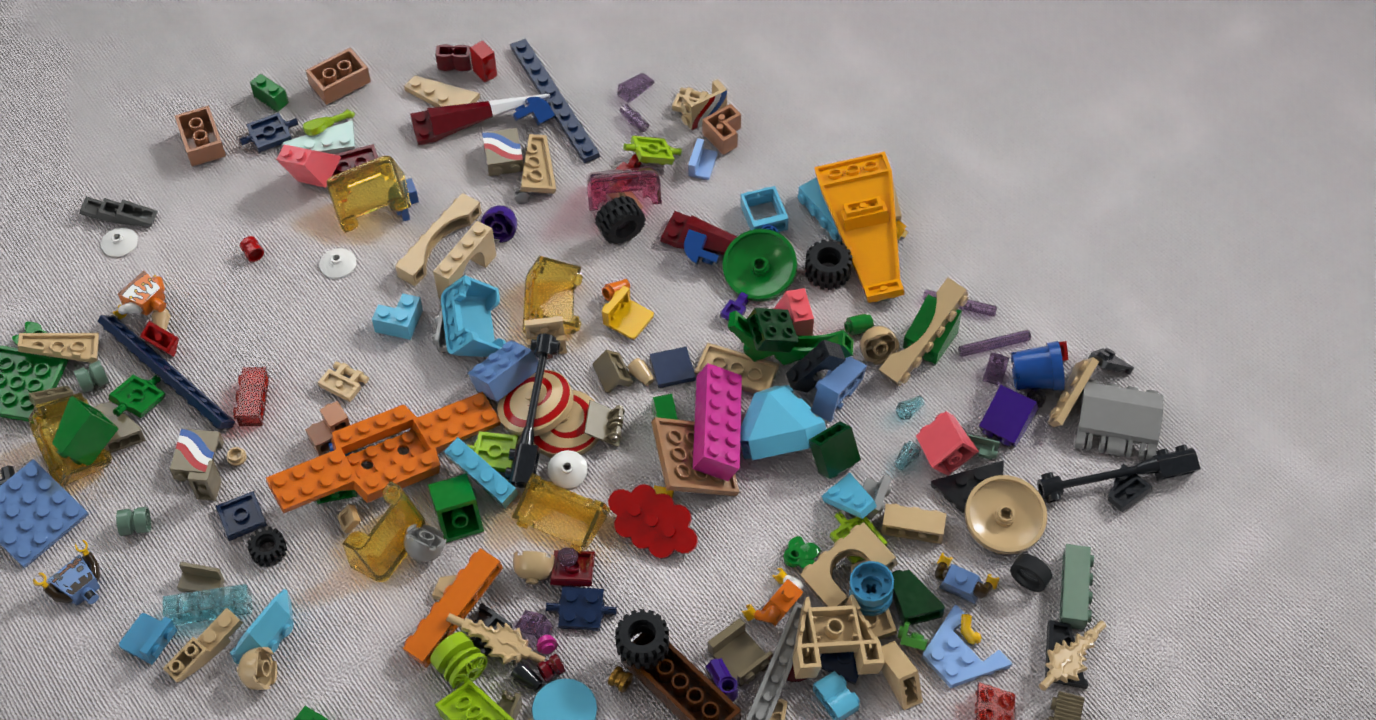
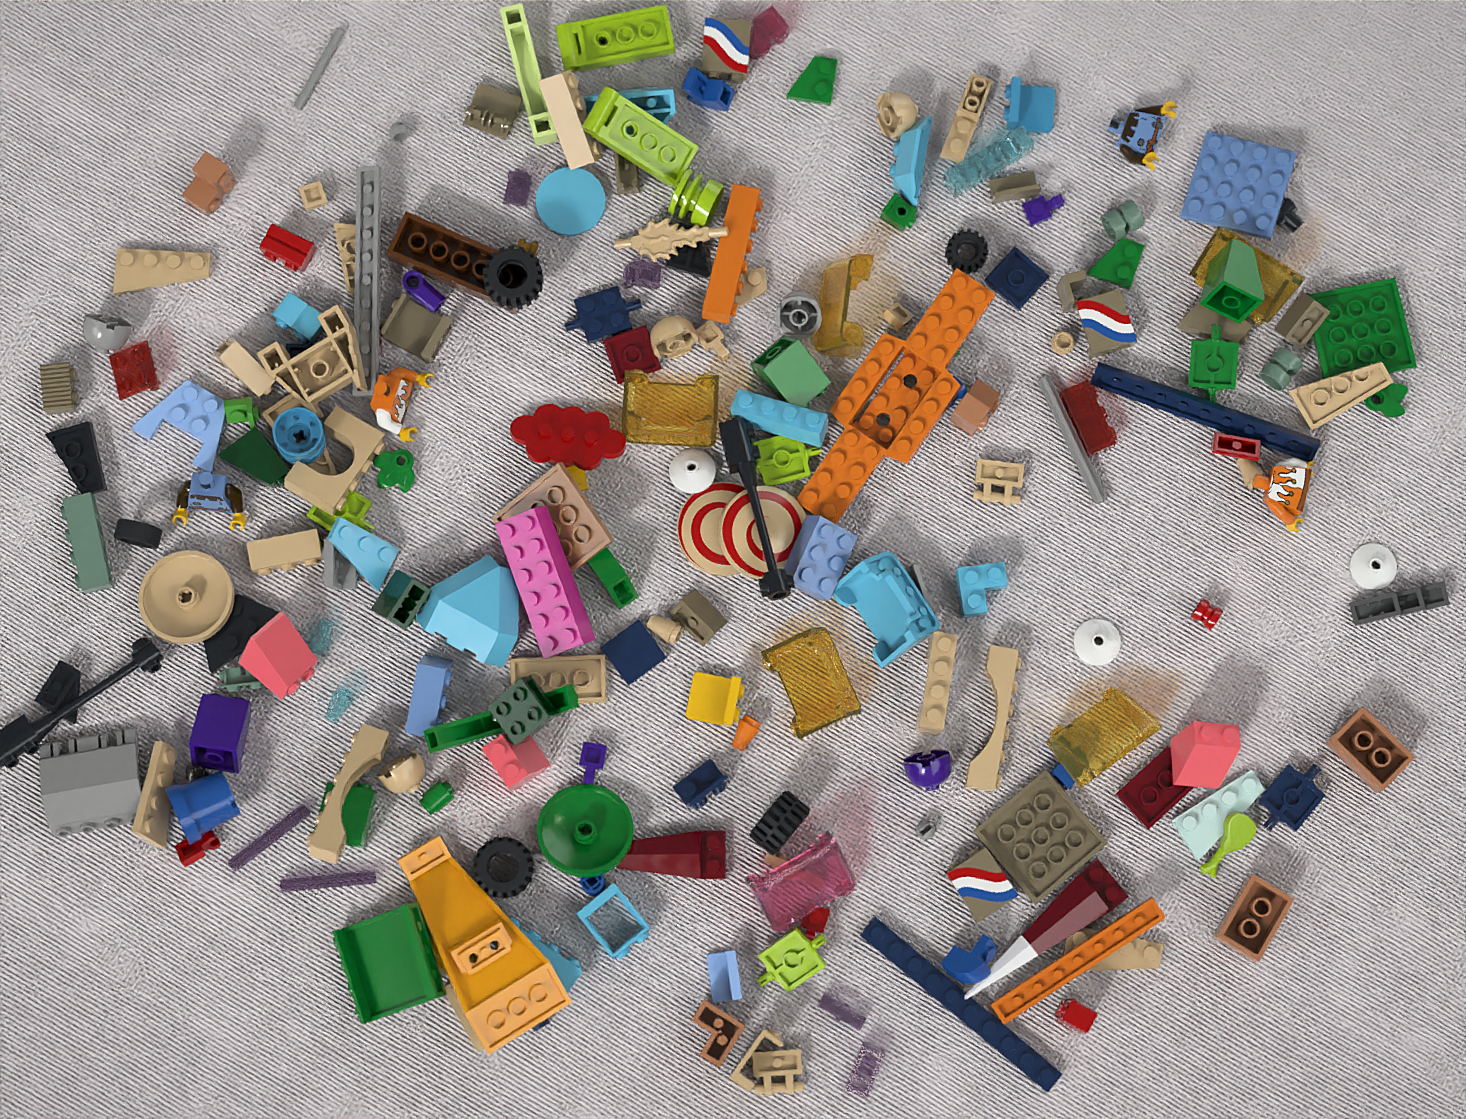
camera: 150 degrees right, 25 degrees up
(157, 496) = (1119, 264): none -> green wing
(190, 555) = (1040, 210): none -> dark purple plate
(269, 92) = (1327, 858): green brick -> none
(272, 391) = (1072, 439): none -> light grey axle
(302, 594) = (891, 215): none -> green brick
(447, 165) = (1040, 837): none -> dark tan plate
(453, 57) = (1126, 1008): dark red brick -> none
(464, 89) = (1077, 960): none -> orange plate
(503, 554) = (710, 338): none -> tan plate
(526, 676) = (624, 217): black cone -> none
(537, 168) = (924, 875): tan wing -> none
(546, 644) = (619, 259): dark pink plate -> none
(550, 325) = (793, 622): tan slope -> none
(551, 668) = (603, 235): dark red wheel -> none
(567, 556) = (640, 358): plate -> none
(604, 422) = (675, 539): dark tan hinge -> none
(663, 263) = (701, 784): none -> dark blue bracket
(694, 247) = (669, 821): blue brick -> none
(824, 356) = (460, 695): black arch -> none
(933, 235) = (389, 963): none -> green panel
(966, 630) = (182, 442): yellow arm -> none
(996, 369) = (256, 798): clear purple bracket -> none
(1067, 660) = (72, 449): tan piece -> none
(1111, 362) = (124, 857): black wing -> none

